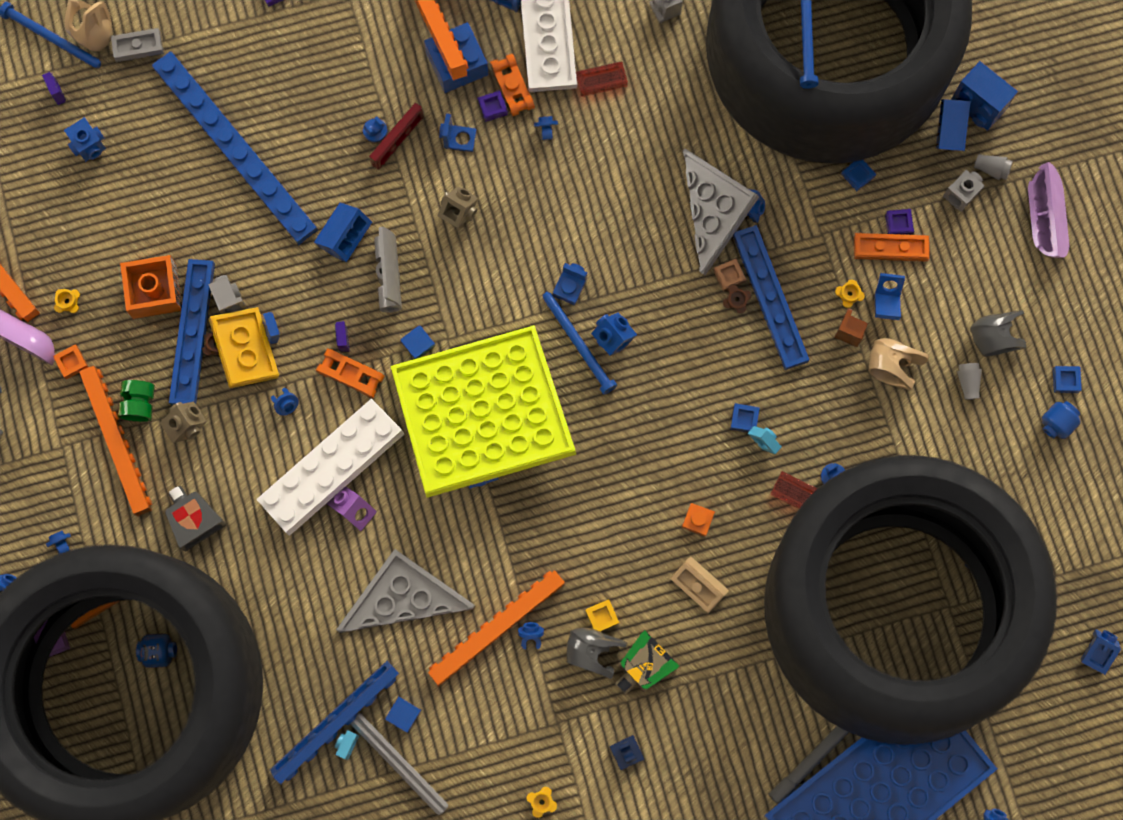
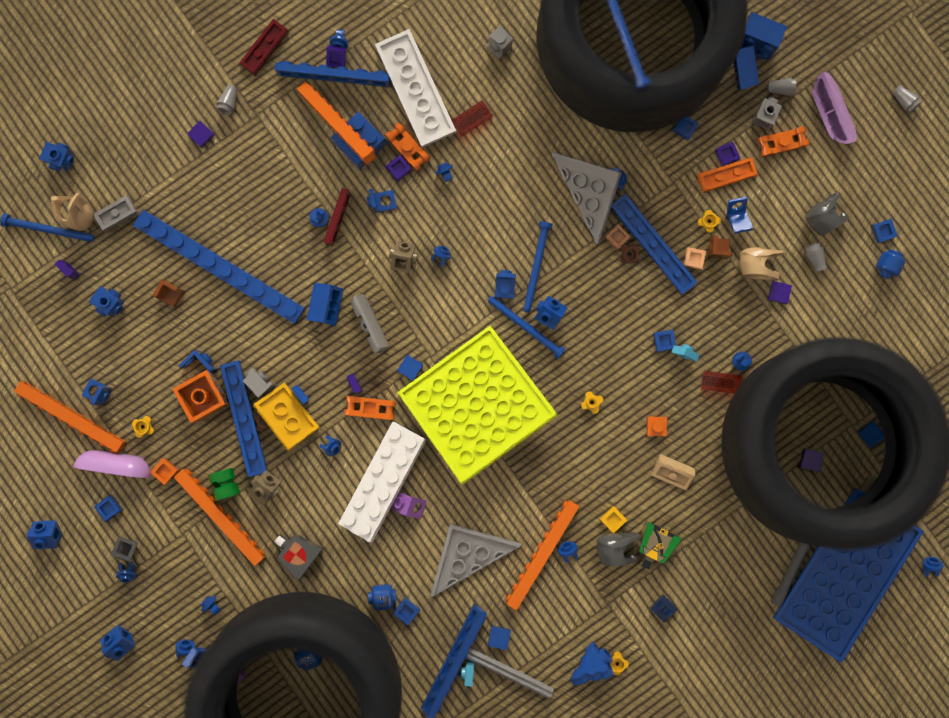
camera: 20 degrees left, 10 degrees up
(32, 244) = (101, 395): none -> blue bracket
(161, 155) = (168, 293): none -> dark orange panel
(164, 237) = (204, 359): none -> blue bracket
(275, 608) = (382, 597): none -> blue head
(299, 639) = (406, 611): none -> blue tile
(508, 220) = (442, 252): none -> blue plate
(509, 792) = (593, 666): none -> blue rock
(619, 461) = (593, 407): none -> yellow plate
(644, 232) = (545, 226): none -> blue bar
(816, 332) = (694, 258): none -> light nougat tile
(881, 630) = (811, 460): none -> dark purple tile
(909, 409) = (779, 292): none -> dark purple tile
(969, 625) = (871, 434): none -> blue tile
(973, 231) = (783, 141): none -> orange plate

